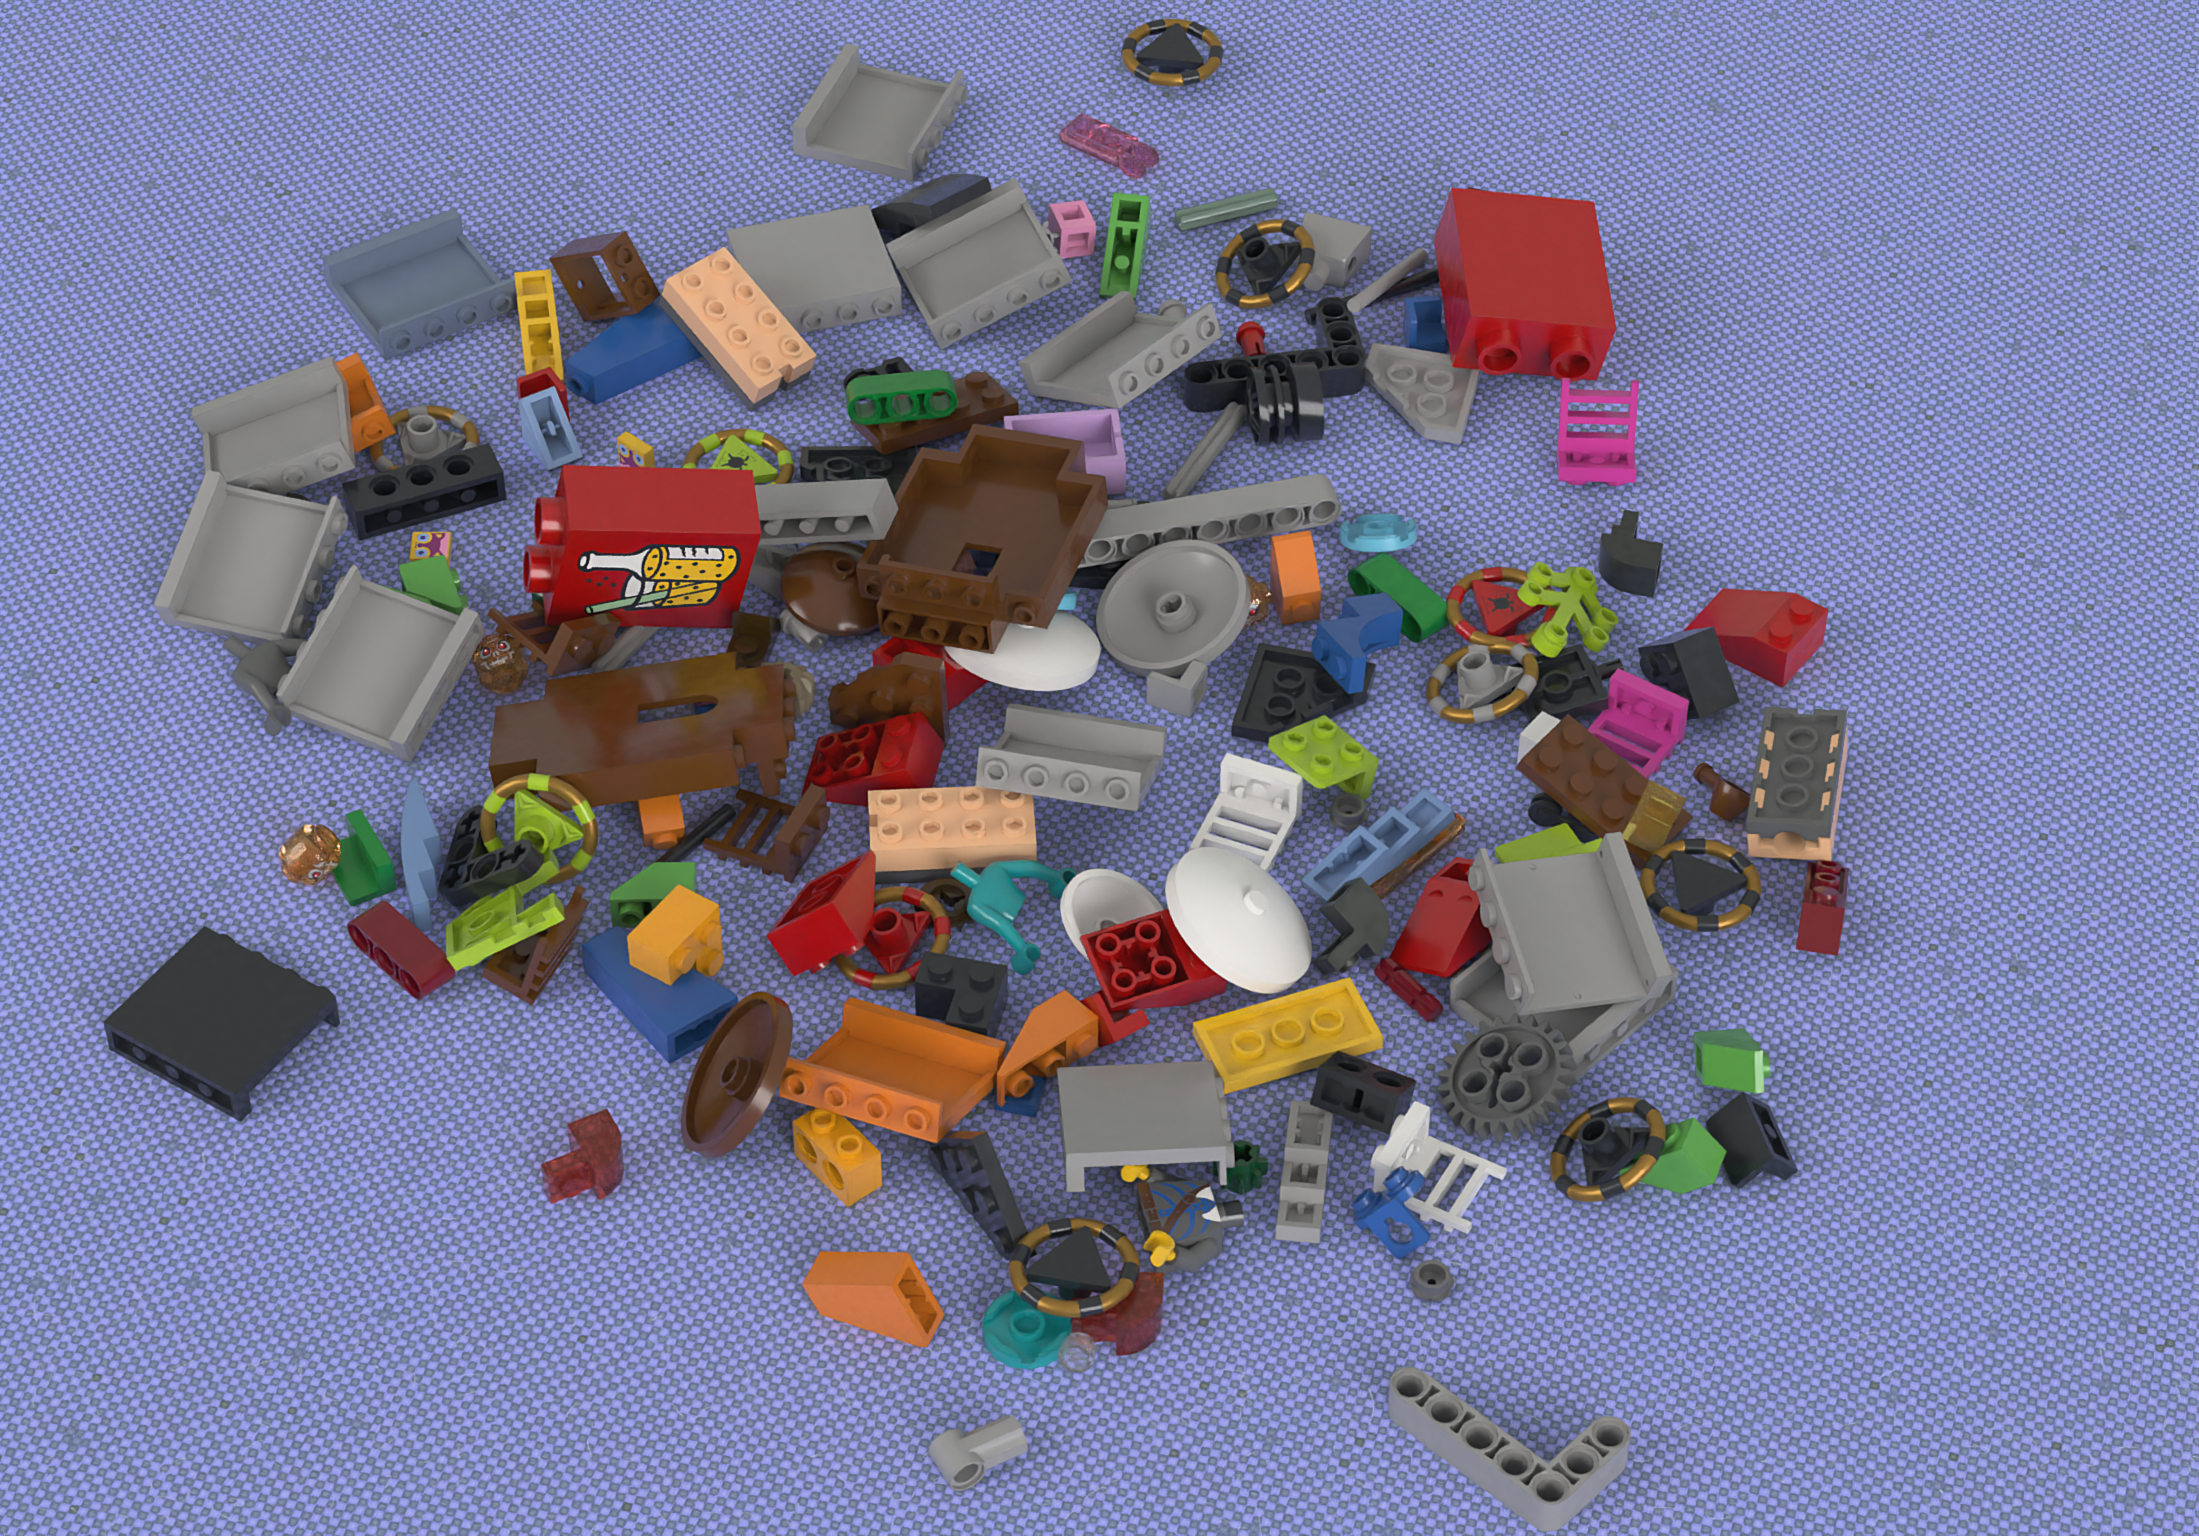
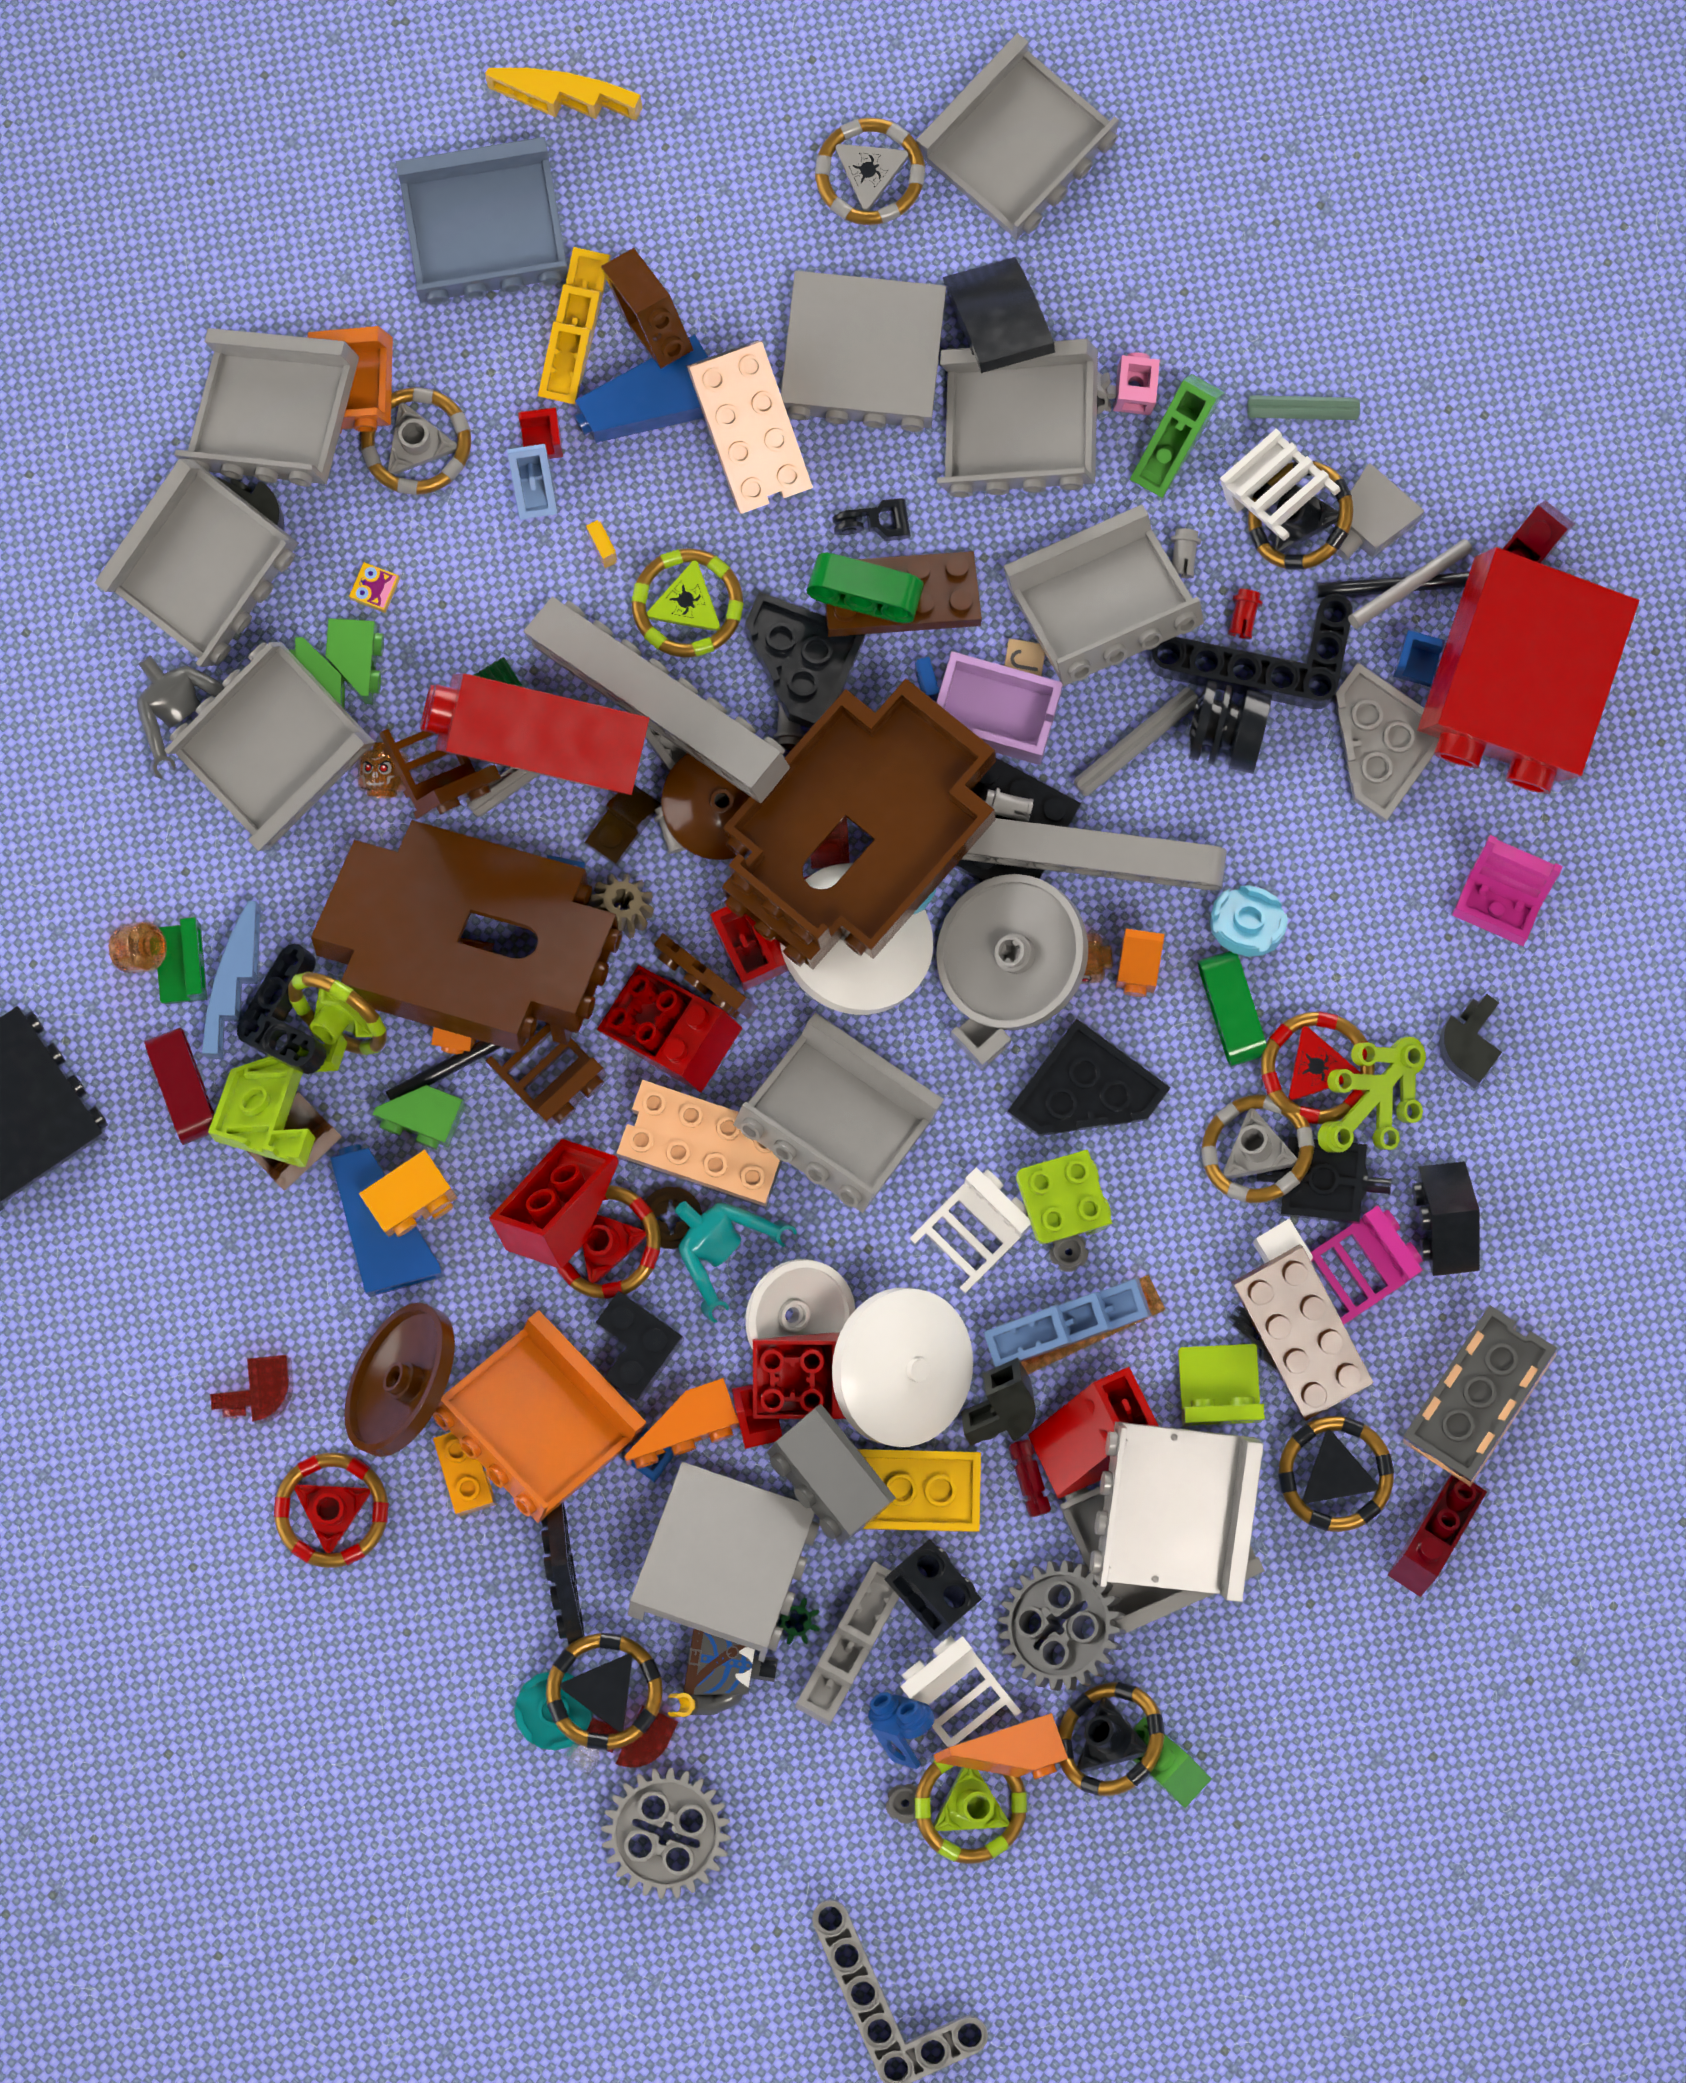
camera: 25 degrees right, 35 degrees up
(424, 491) = (448, 524): black brick -> none
(456, 185) = (551, 89): none -> yellow slope
(709, 1239) = (331, 1510): none -> red piece
(760, 160) = (870, 170): none -> piece
(875, 1293) = (436, 1637): orange slope -> none
(967, 1456) = (453, 1826): light grey piece -> none
(1109, 145) = (1224, 268): clear pink hinge -> none
(1171, 53) = (1343, 163): black piece -> none
(1211, 1377) = (654, 1868): none -> light grey gear
(1215, 1010) = (830, 1475): none -> slope
(1217, 241) = (1259, 467): none -> white plate
(1362, 628) = (1180, 1040): blue arch -> none
(1500, 1256) = (968, 1807): none -> lime piece
(1510, 1186) = (1012, 1751): none -> orange slope
(1653, 817) = (1323, 1390): clear yellow panel -> none
(1727, 798) = (1416, 1376): reddish brown bar -> none
(1730, 1060) = (1259, 1687): bright green slope -> none
(1751, 1140) = (1243, 1767): black panel -> none
(1765, 630) = (1543, 1178): red slope -> none

